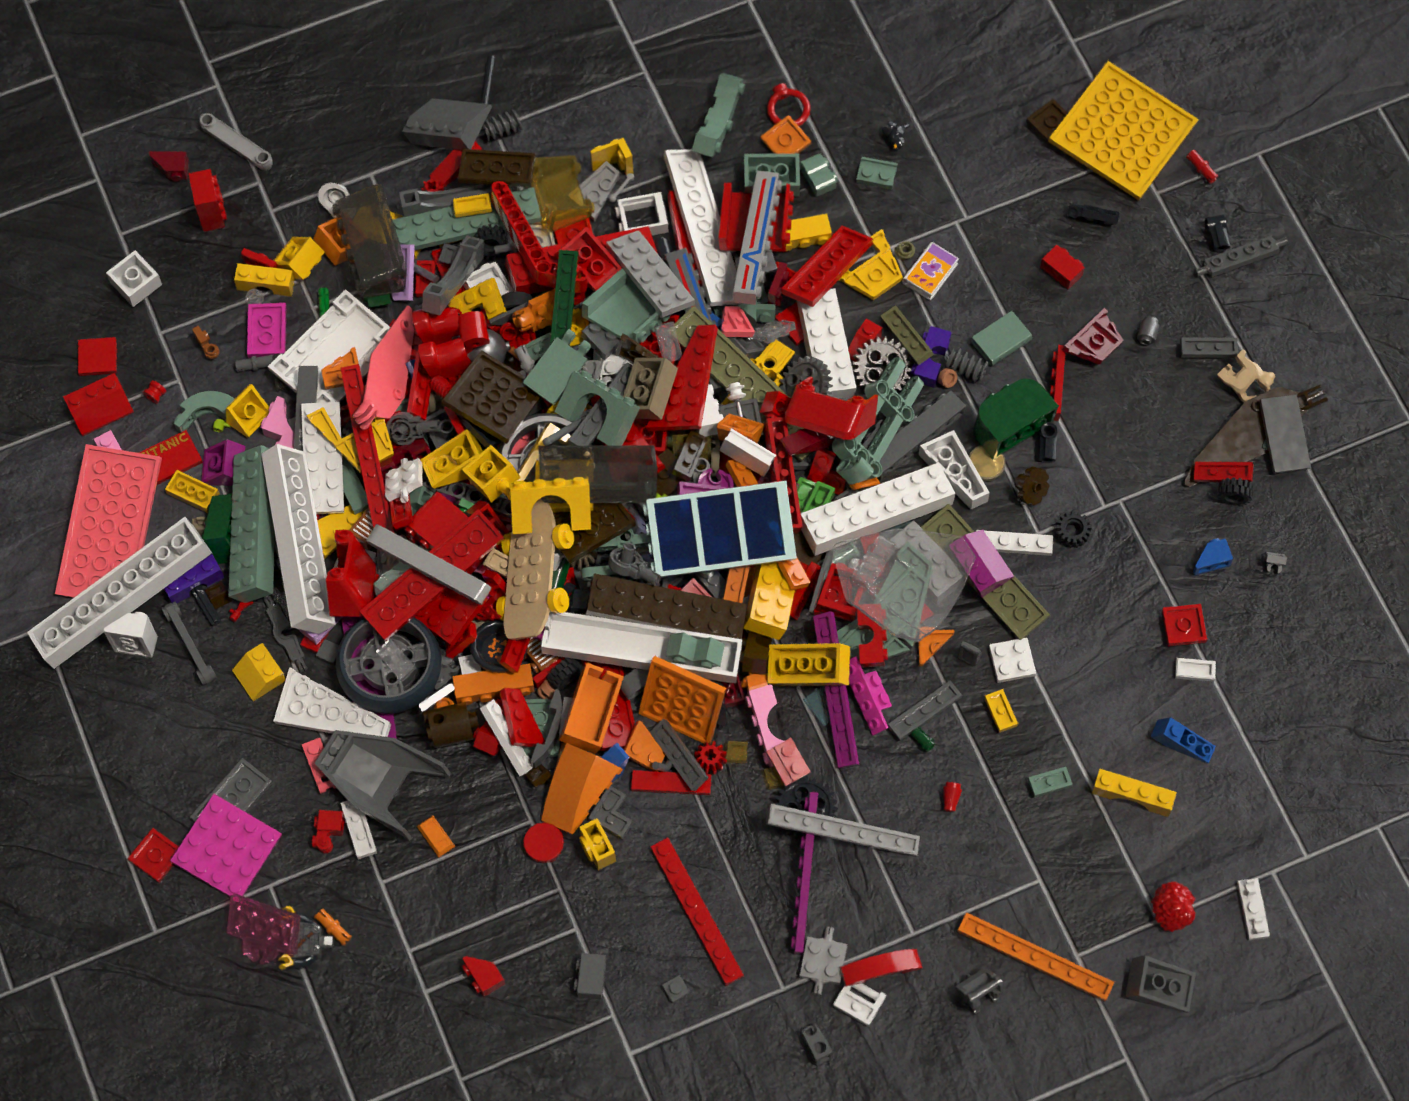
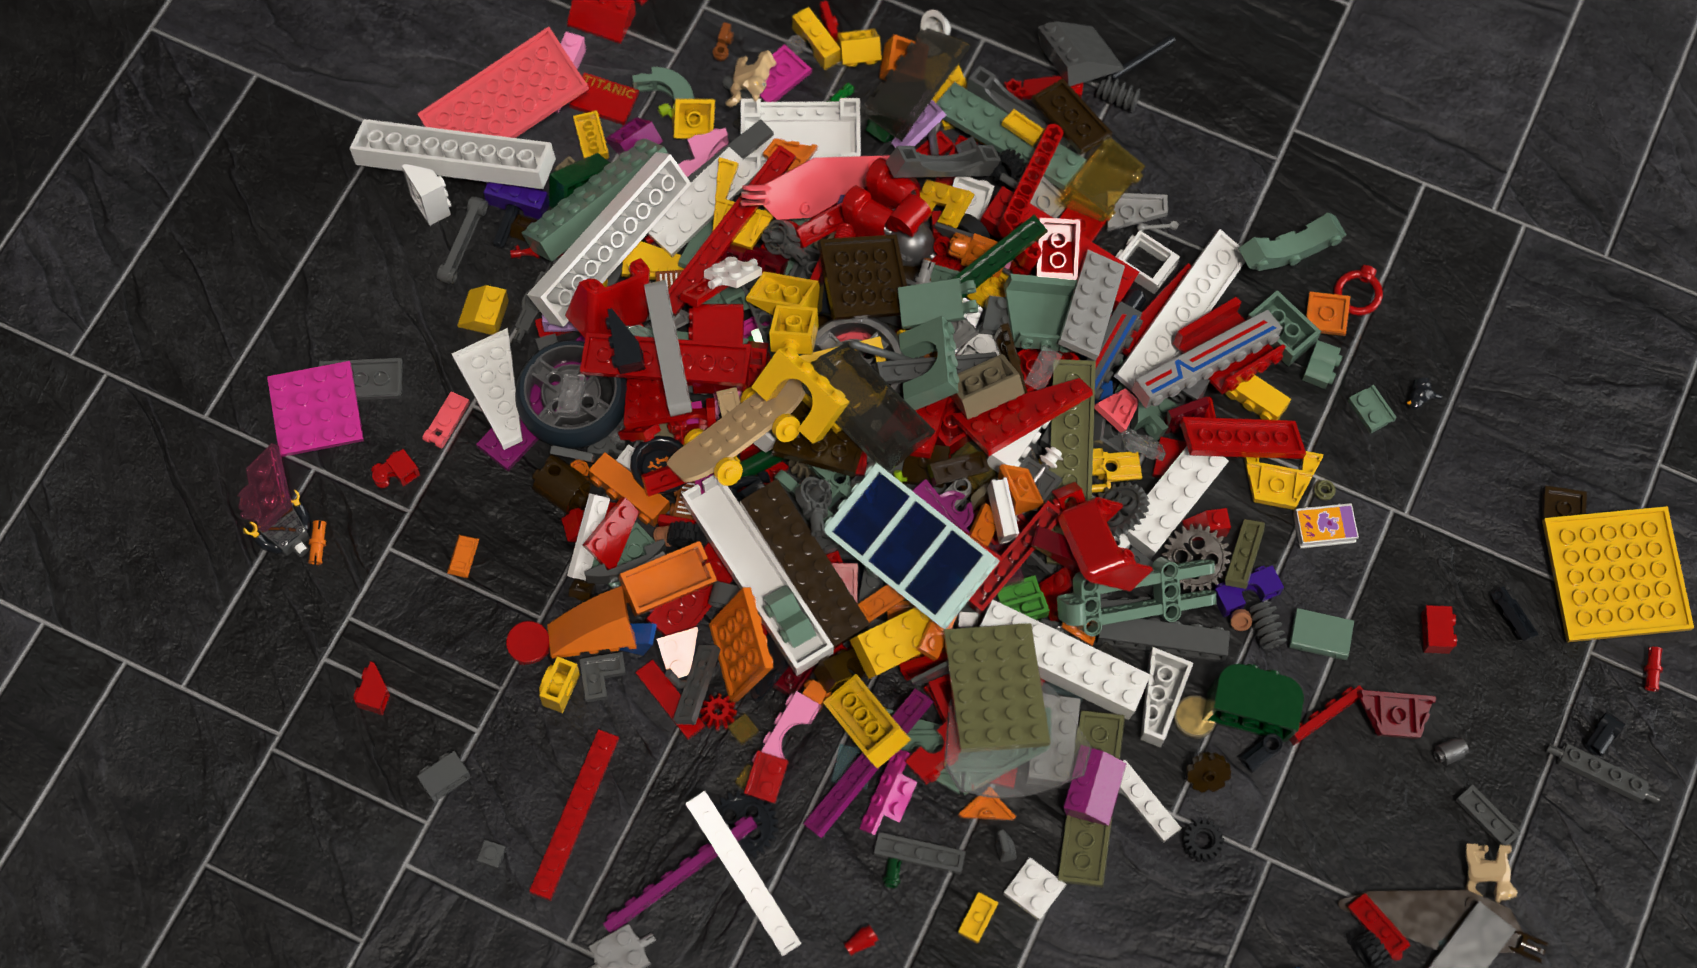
camera: 45 degrees right, 0 degrees up
(154, 391) = (648, 42): red wheel -> none
(154, 855) = (266, 361): red tile -> none
(256, 345) = (751, 77): none -> tan animal
(359, 830) = (417, 491): white plate -> none
(372, 770) = (466, 461): dark grey windscreen -> none
(401, 591) = (627, 349): none -> black slope
(613, 152) = (1177, 192): yellow bracket -> none
(868, 560) = (996, 688): none -> olive plate

